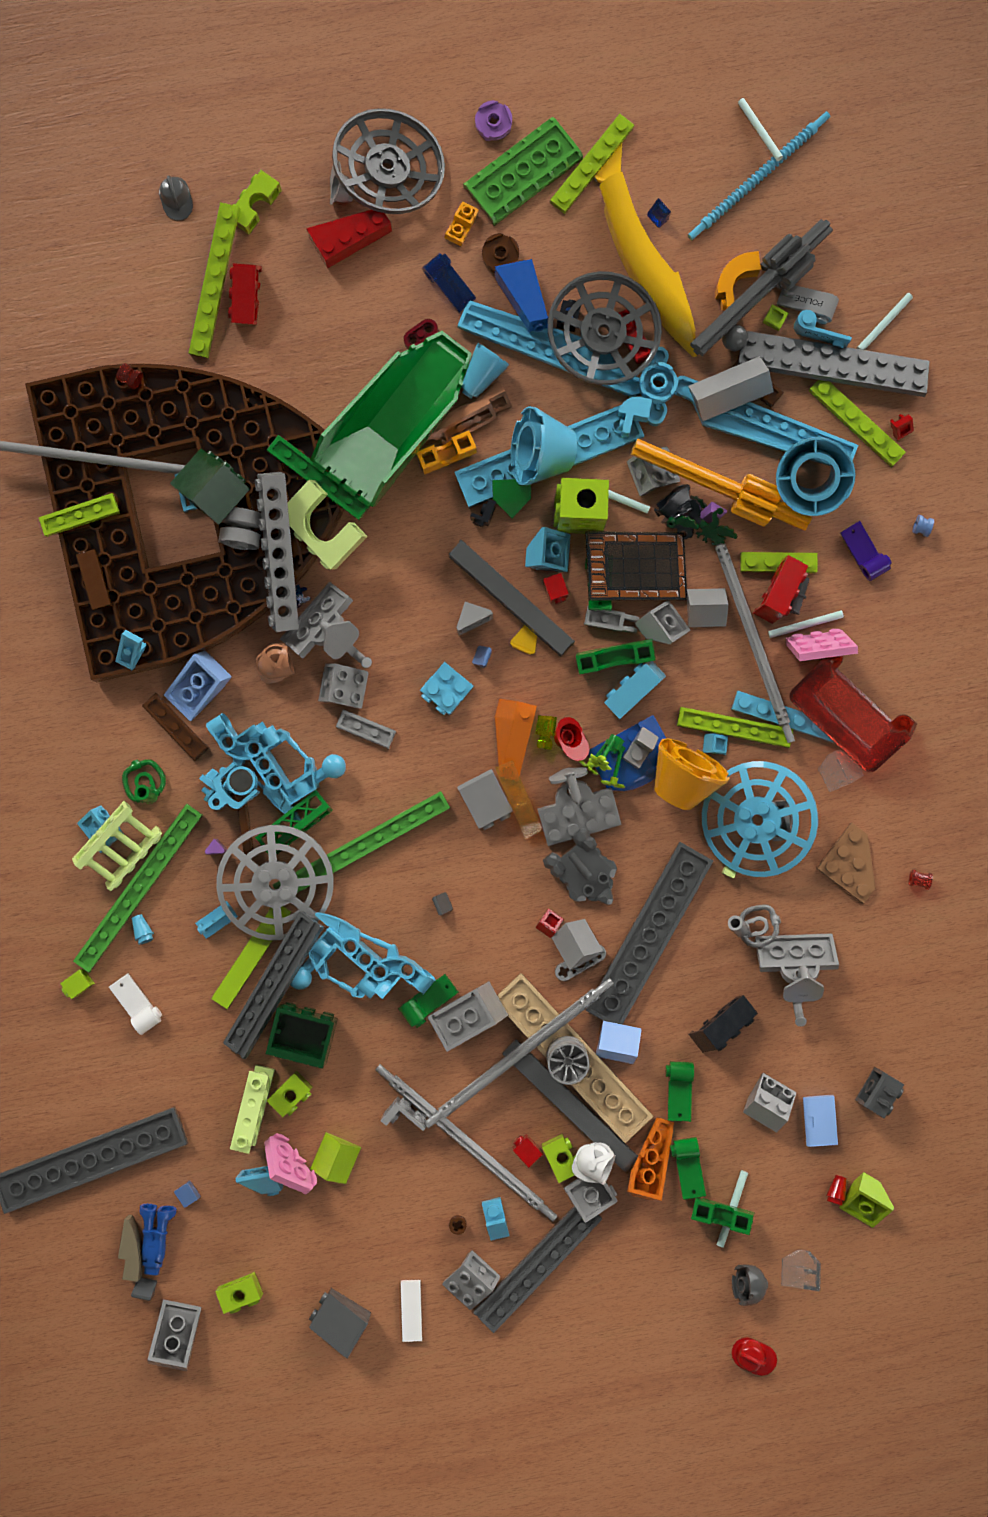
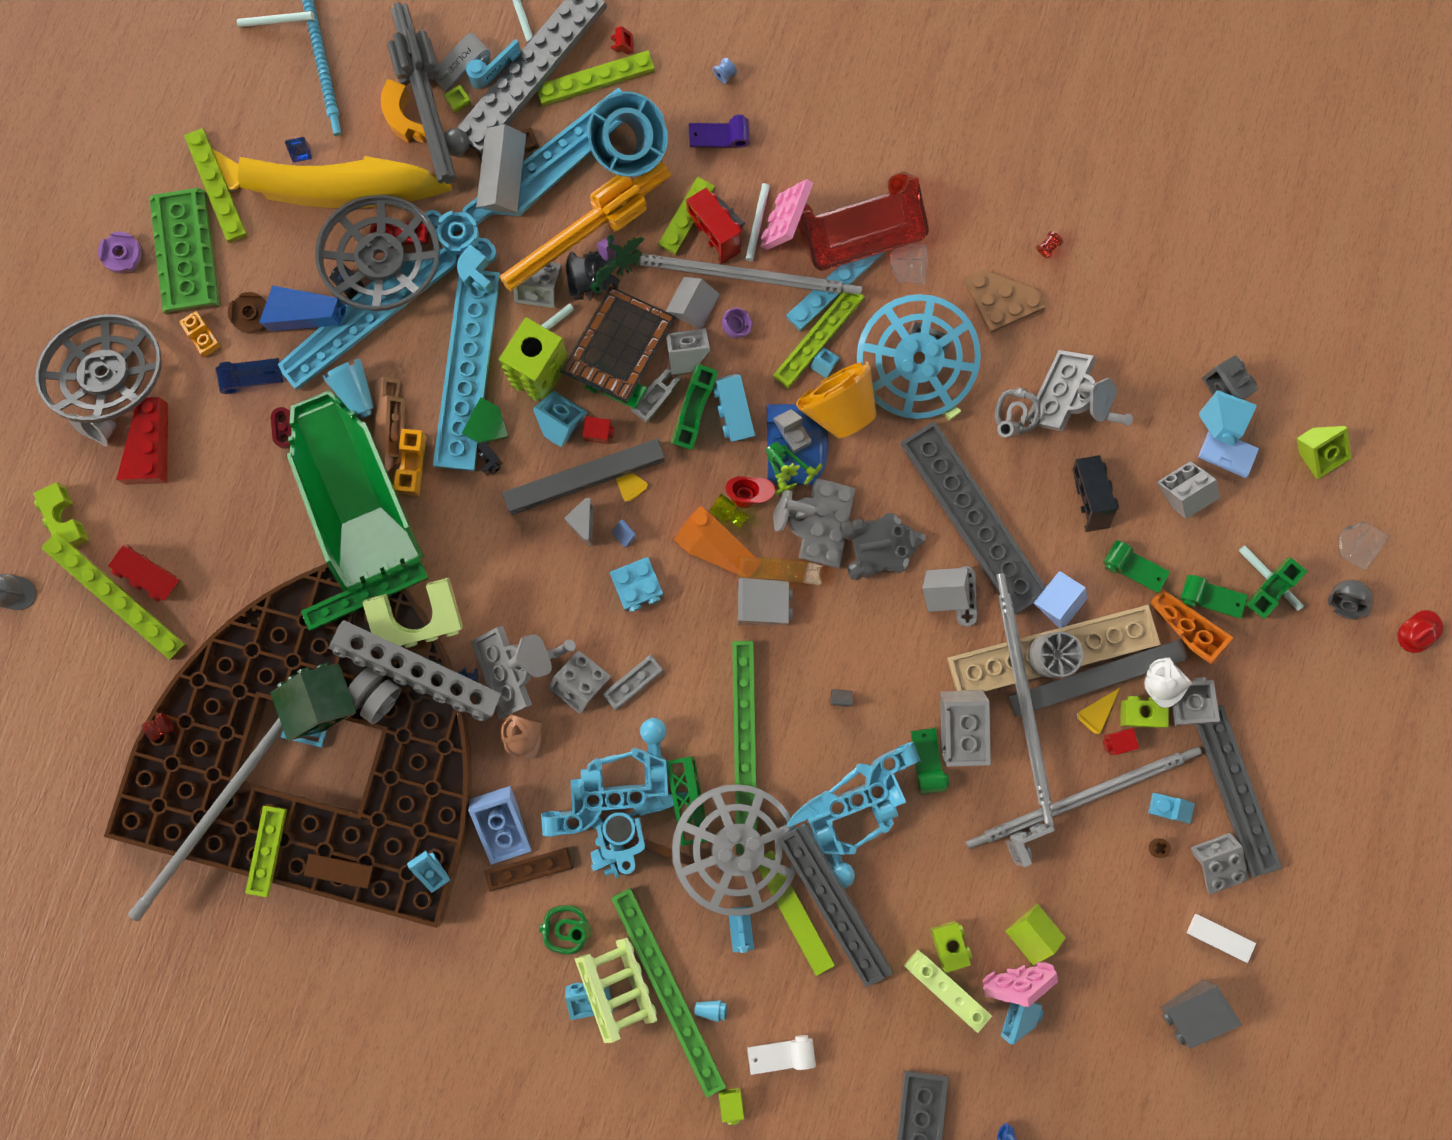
camera: 65 degrees left, 5 degrees down
(187, 1194) = (997, 1104): medium blue slope -> none
(215, 847) = (670, 891): medium lavender slope -> none
(248, 1285) = (1116, 1090): lime brick -> none
(302, 1035) = (900, 902): dark green container -> none
(538, 1119) = (1096, 714): none -> yellow sticker
(541, 447) = (456, 369): medium azure cone -> none
(549, 923) = (913, 606): red slope -> none
(707, 653) = (736, 323): none -> medium lavender hair
(837, 1190) = (1301, 471): red cone -> none
(847, 1104) = (1227, 417): none -> medium azure slope

